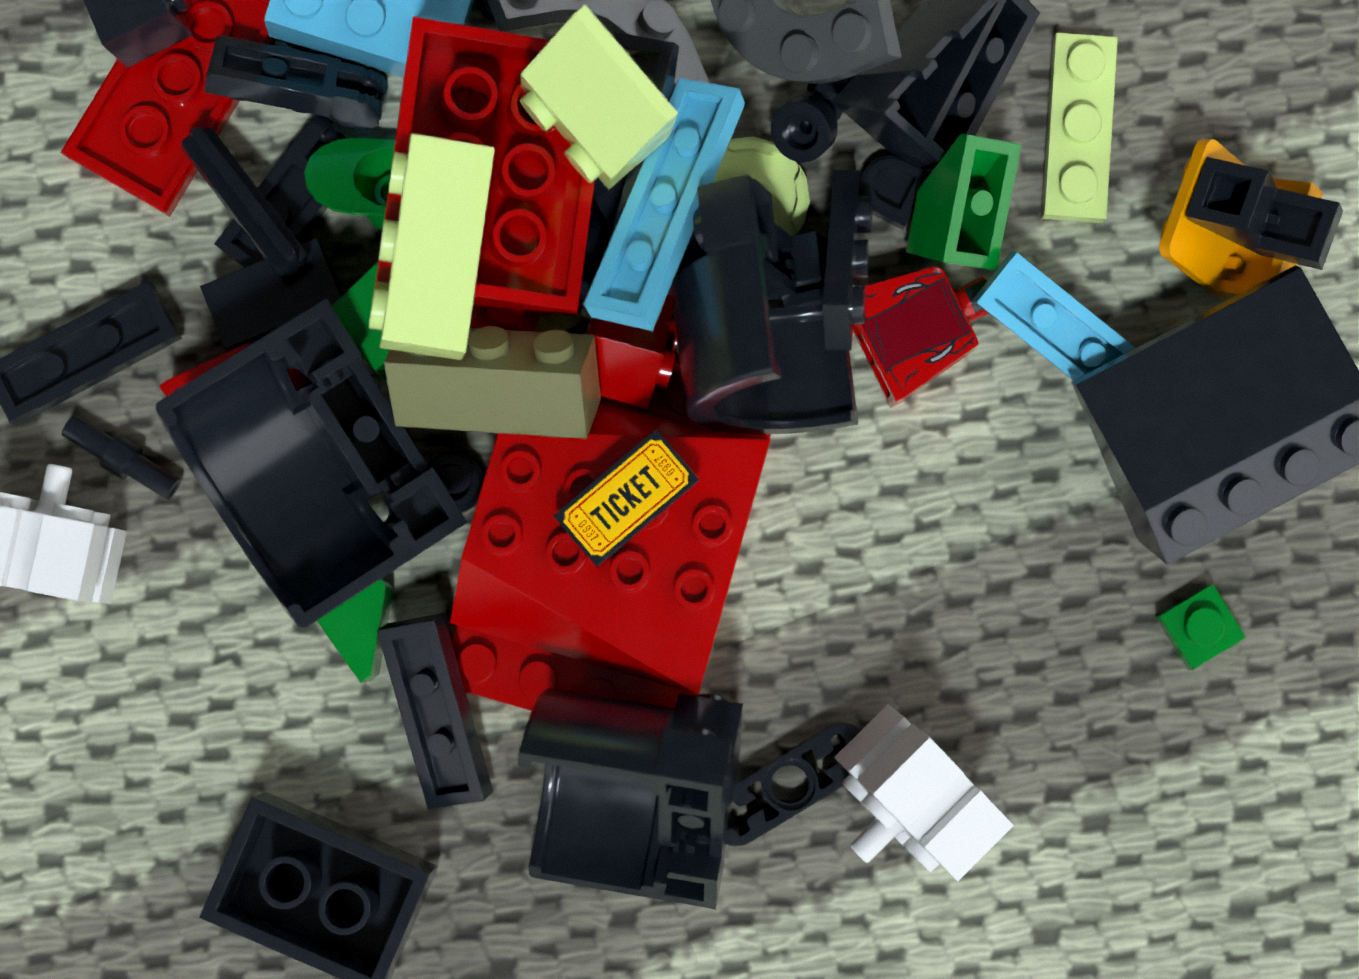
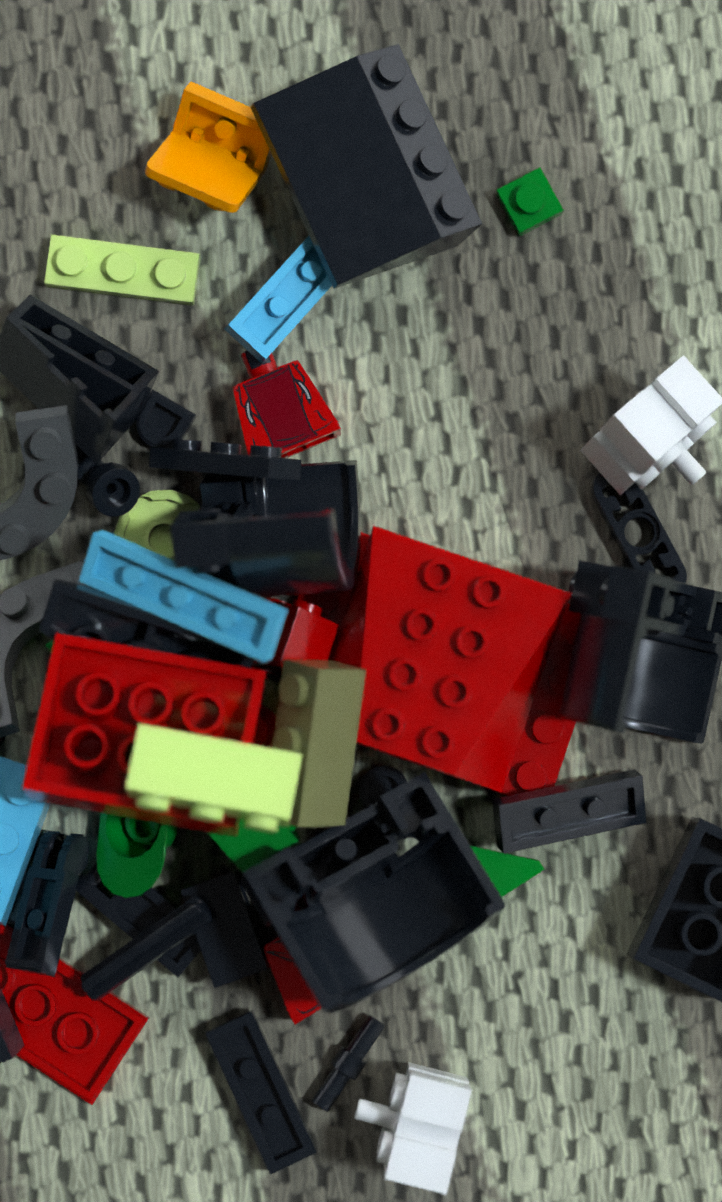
camera: 90 degrees left, 0 degrees up
(596, 100) = (105, 642): yellowish green slope -> none
(626, 498) = (416, 639): tile -> none
(966, 203) = (186, 363): green slope -> none
(1257, 215) = (210, 129): black slope -> none

